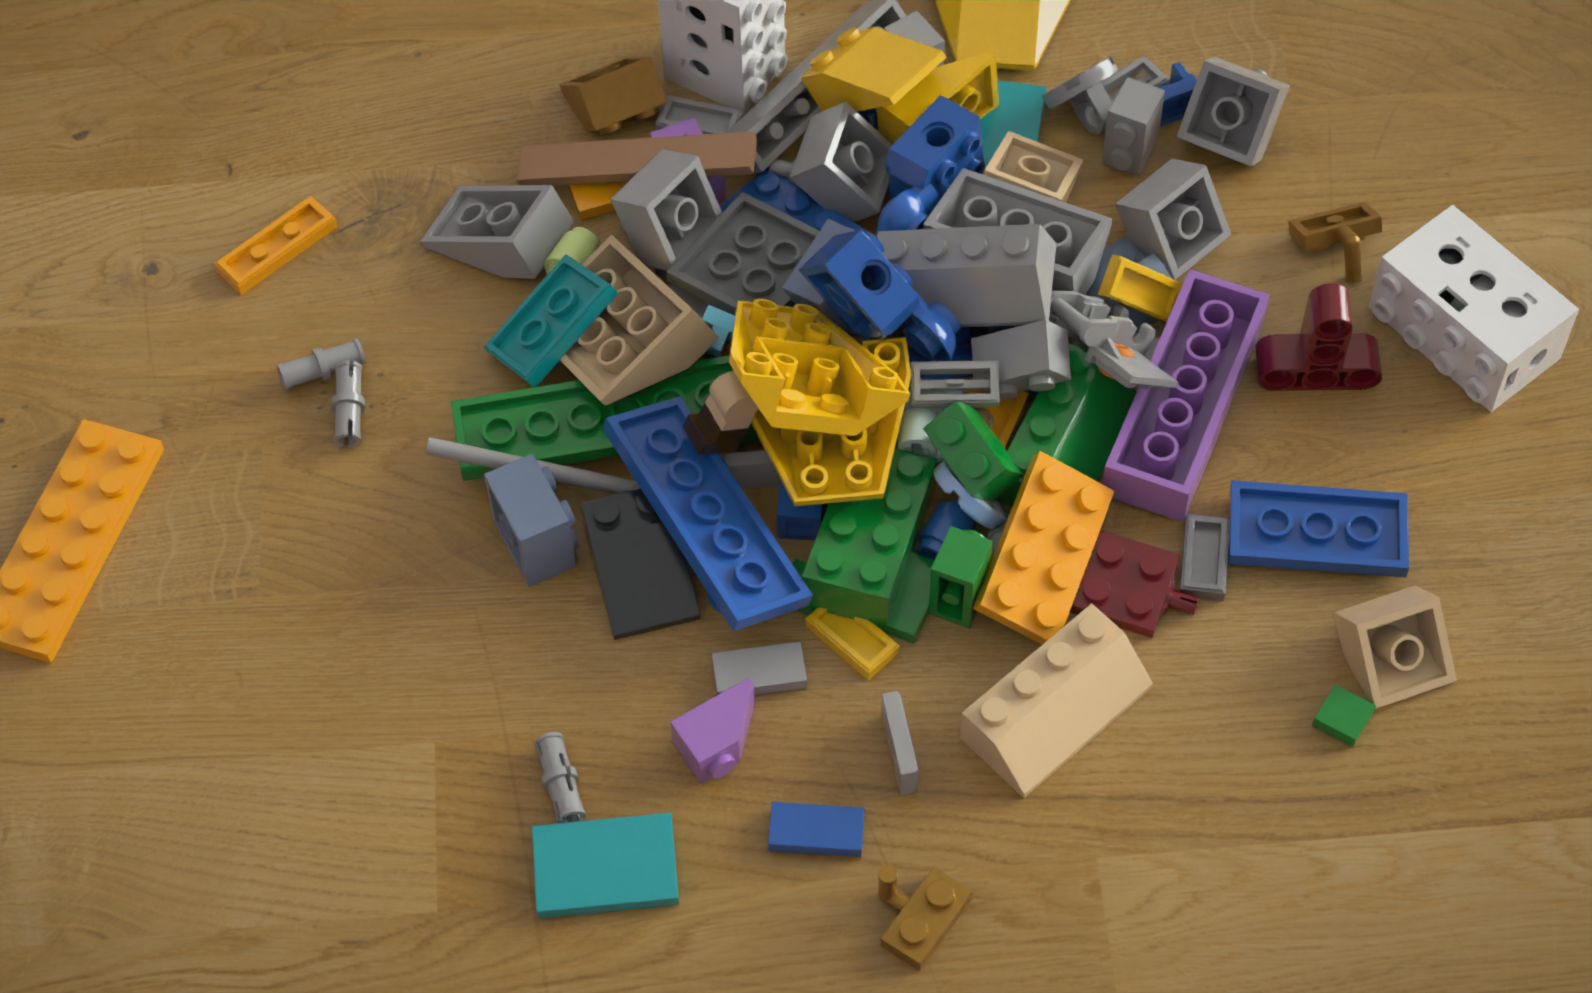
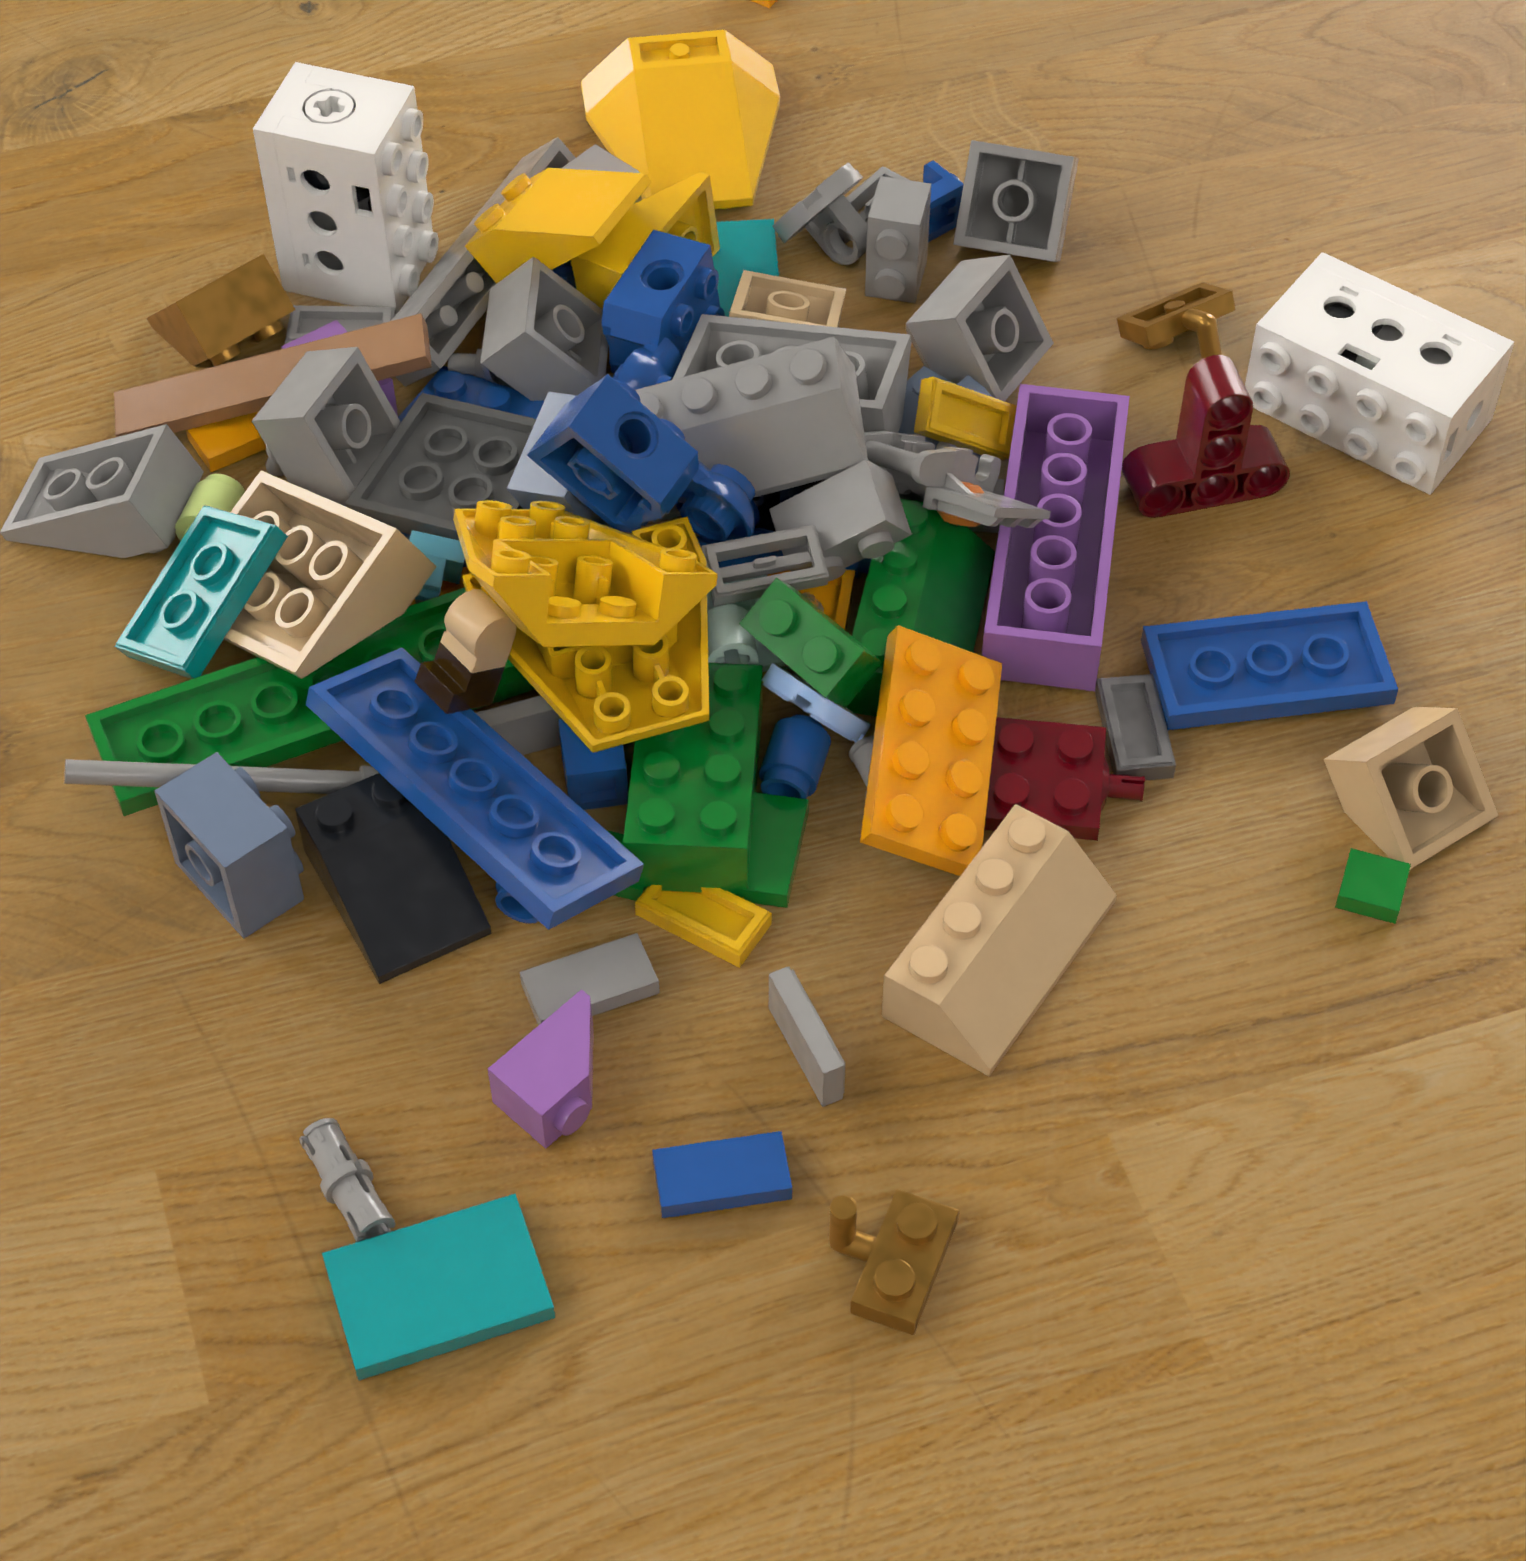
camera: 15 degrees left, 5 degrees down
(959, 575) = (831, 805): green brick -> none

